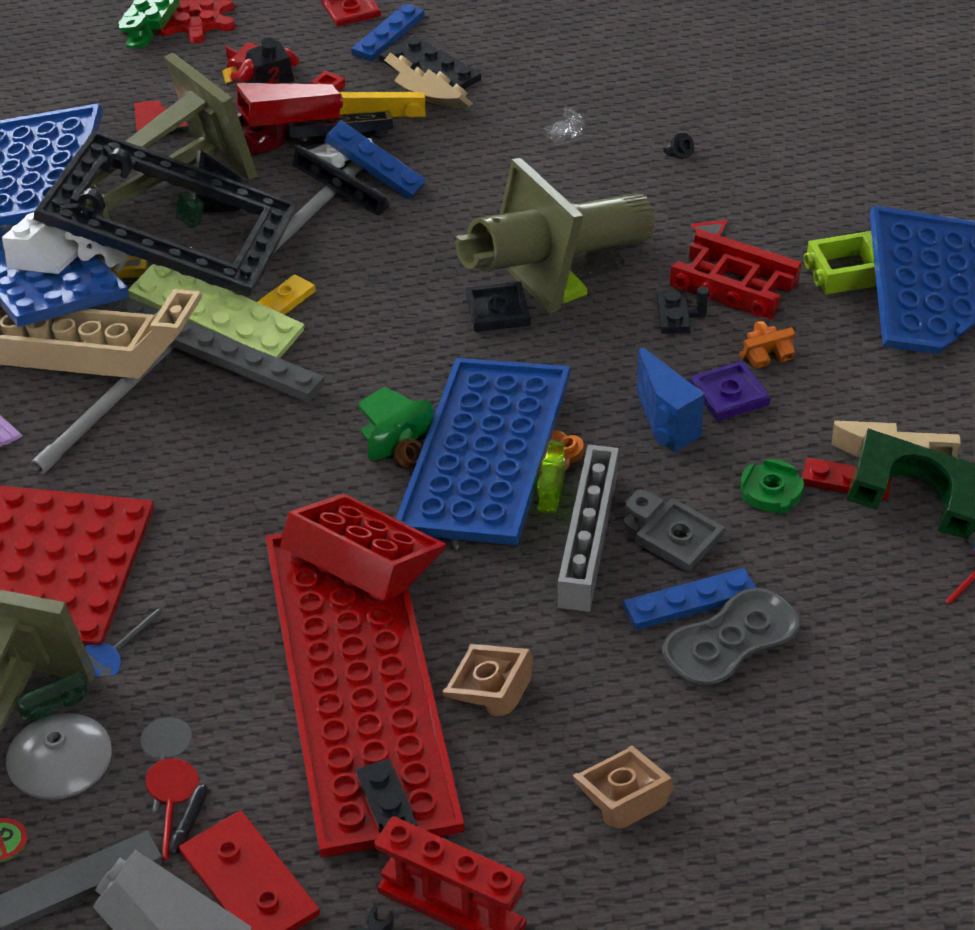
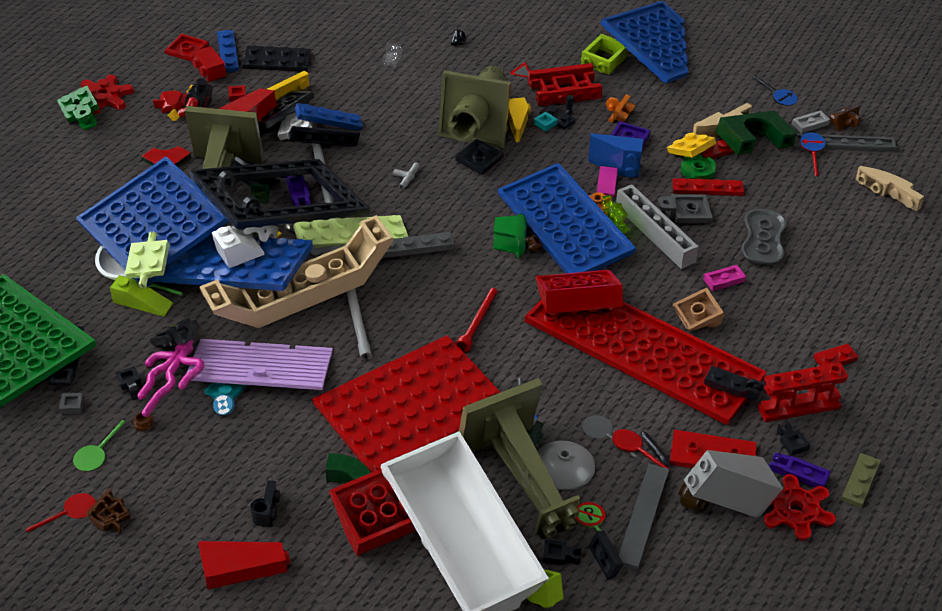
camera: 45 degrees left, 0 degrees up
(75, 327) = (315, 273): none -> tan tile
(162, 522) = (466, 340): none -> red piece
(231, 234) = (298, 190): none -> dark purple hinge
(288, 294) = (372, 202): yellow plate -> none
(338, 34) = (209, 64): none -> red brick
(383, 282) = (407, 175): none -> light grey piece
(435, 86) = (288, 69): tan slope -> none
(595, 657) = (724, 277): none -> dark pink plate
(602, 876) = (841, 354): none -> red plate
(613, 282) = (518, 116): none -> yellow slope
(618, 428) = (607, 180): none -> dark pink slope
(626, 787) = (804, 316): medium nougat slope -> none
(644, 308) = (545, 121): none -> teal plate
(686, 599) = (725, 233): blue plate -> none
(752, 521) = (707, 187): none -> red plate
(799, 448) = (691, 145): none -> yellow plate

